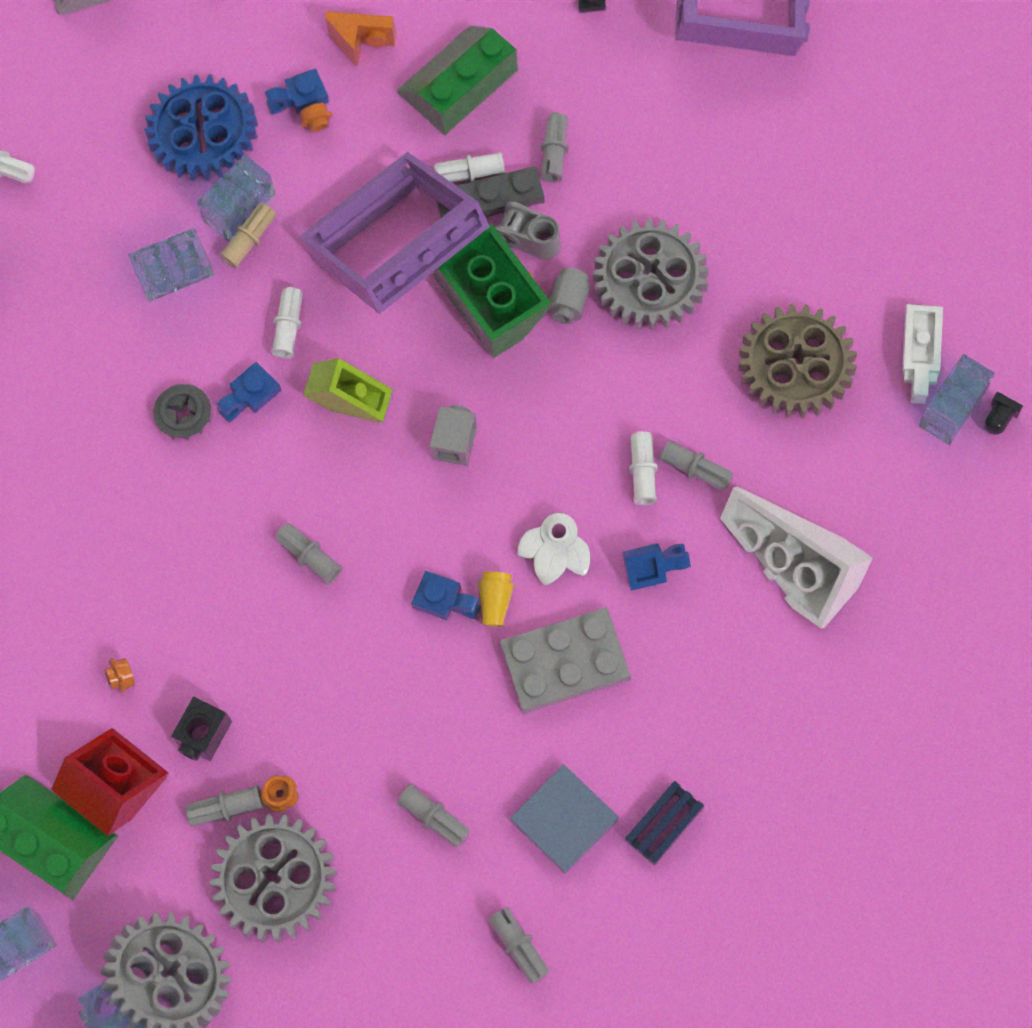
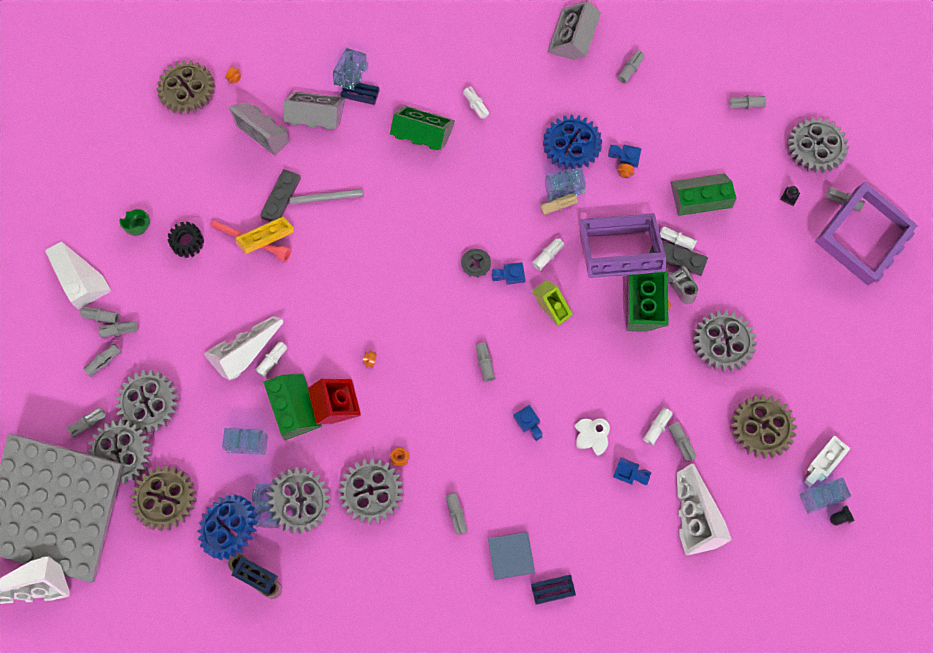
camera: 35 degrees right, 0 degrees up
(171, 264) = (515, 195): clear light blue brick -> none
(198, 714) = (387, 398): black brick -> none
(224, 806) = (373, 445): light grey axle -> none
(354, 29) = (669, 141): orange slope -> none
(453, 435) = (584, 353): light grey brick -> none
(495, 595) = (551, 437): yellow cone -> none
(518, 945) = (452, 596): light grey axle -> none
(554, 147) = (723, 254): light grey axle -> none
(565, 660) = (561, 487): light grey plate -> none
(569, 295) = (680, 326): light grey brick -> none

